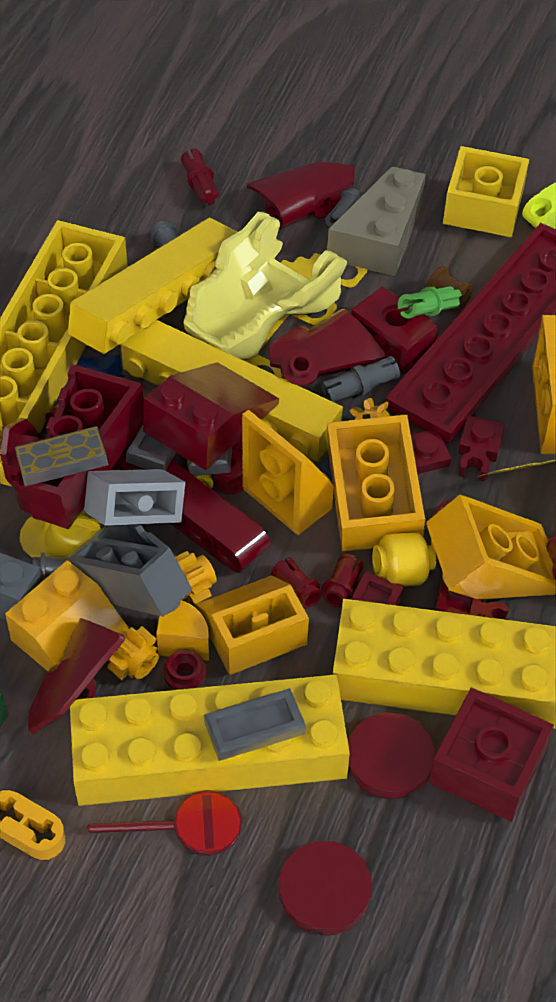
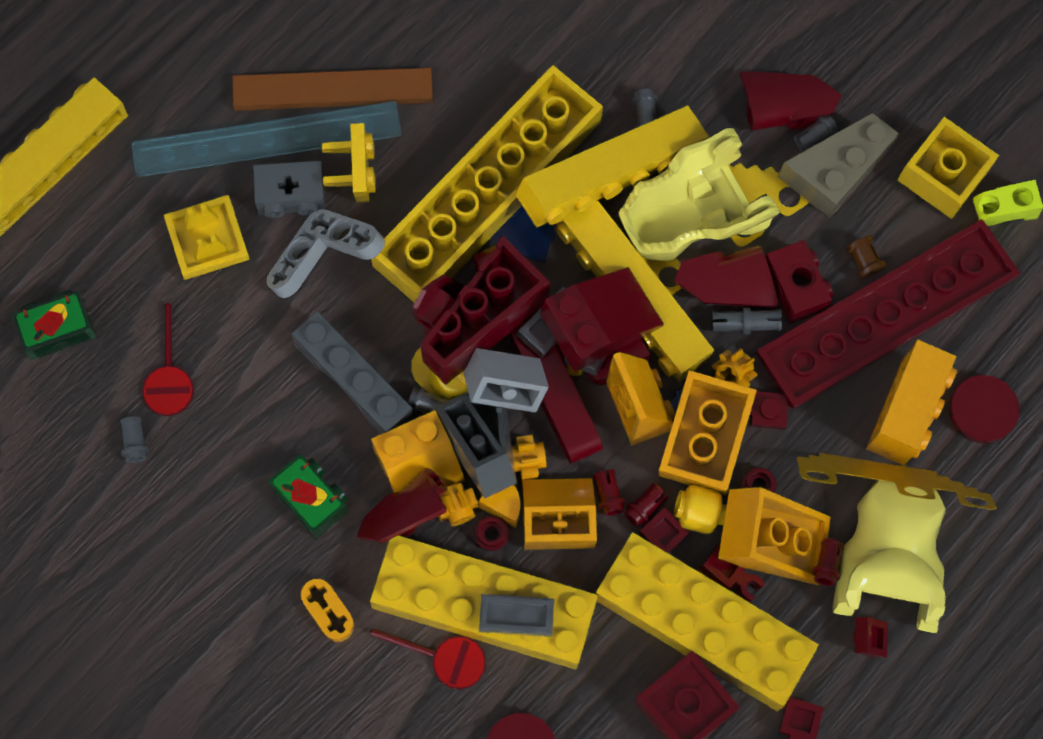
camera: 20 degrees right, 20 degrees up
(61, 456) = (457, 333): flat silver tile -> none
(200, 177) = (703, 47): dark red axle -> none
(297, 377) = (687, 290): dark red plate -> none
(390, 755) = (615, 667): dark red tile -> none
(429, 301) = (836, 274): bright green axle -> none
(480, 444) = (818, 420): dark red plate -> none

